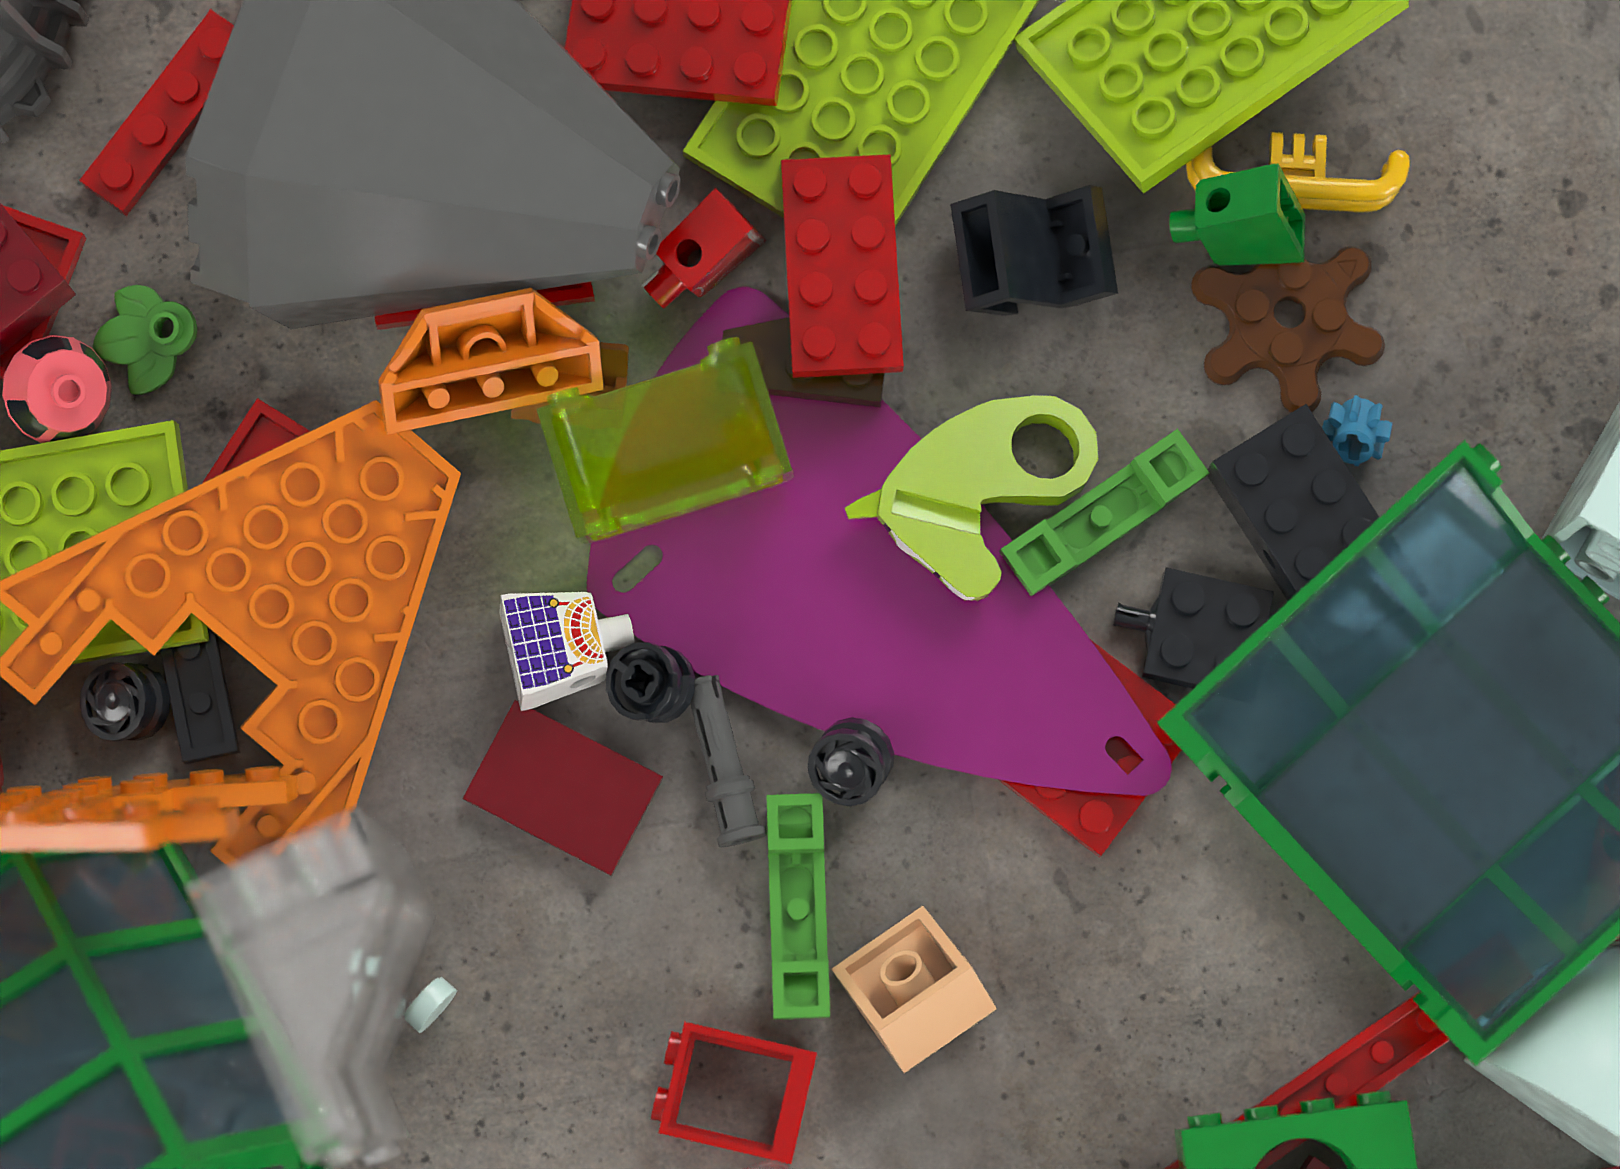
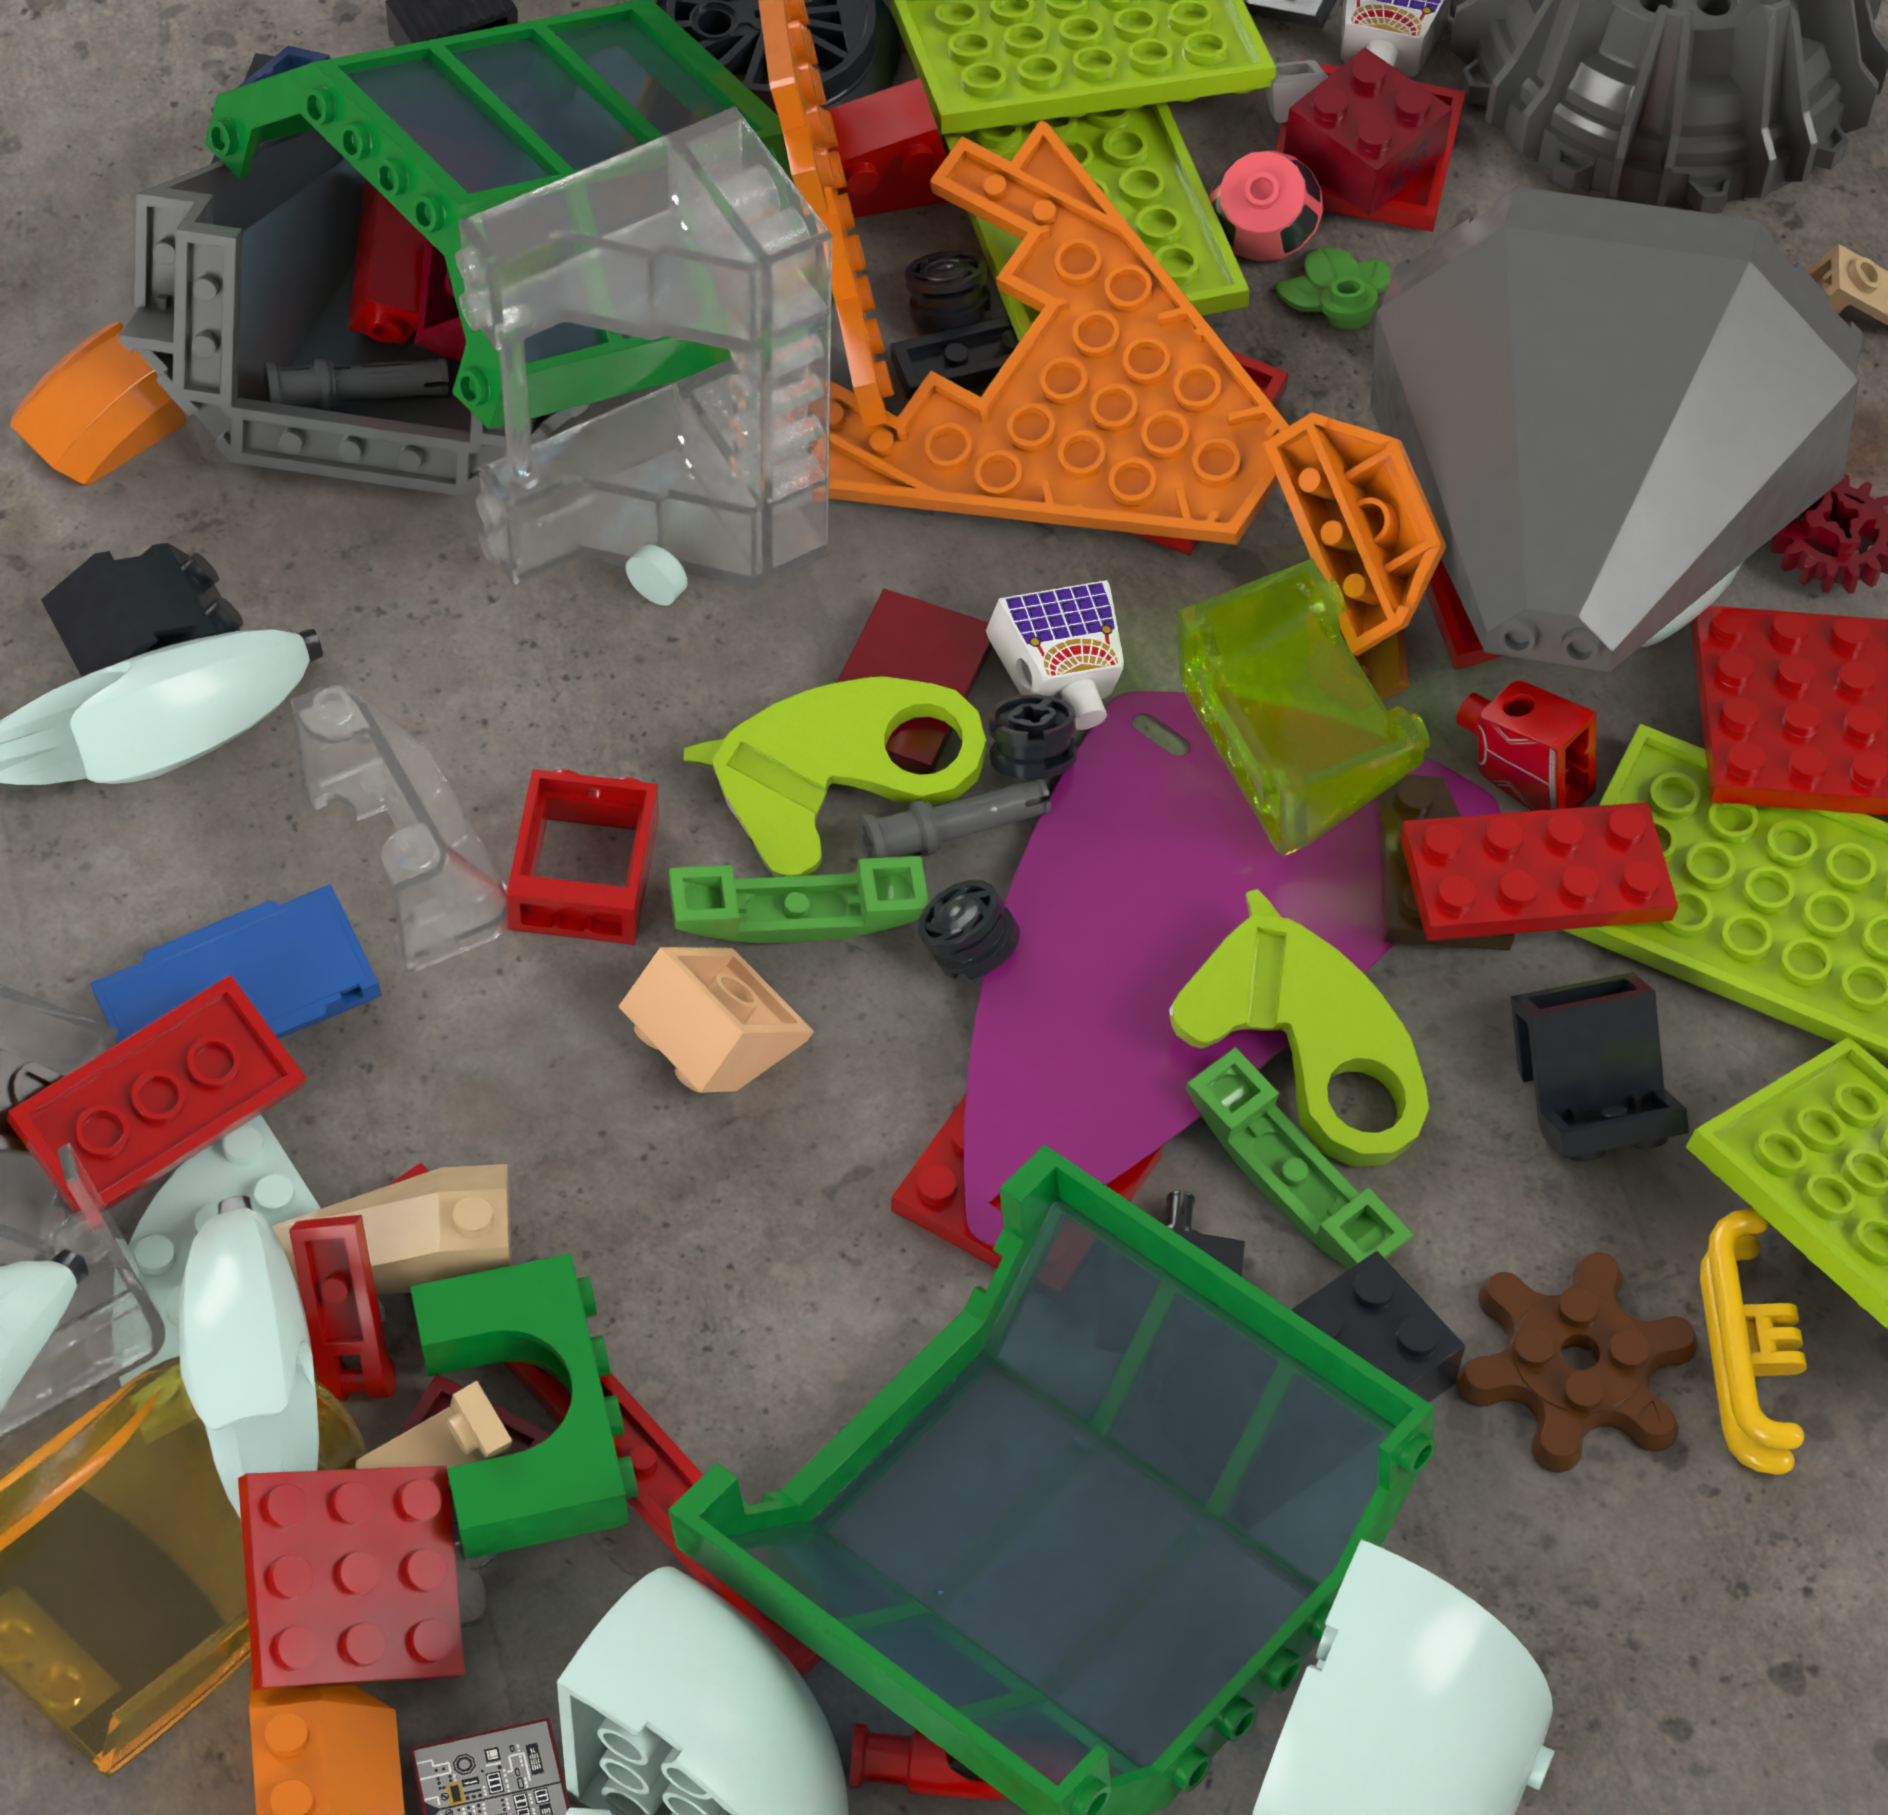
camera: 85 degrees right, 25 degrees down
(634, 860) = (788, 755): none -> lime animal
(1244, 218) = (1681, 1274): green torso -> none
(1357, 430) = (1457, 1425): dark azure gear -> none

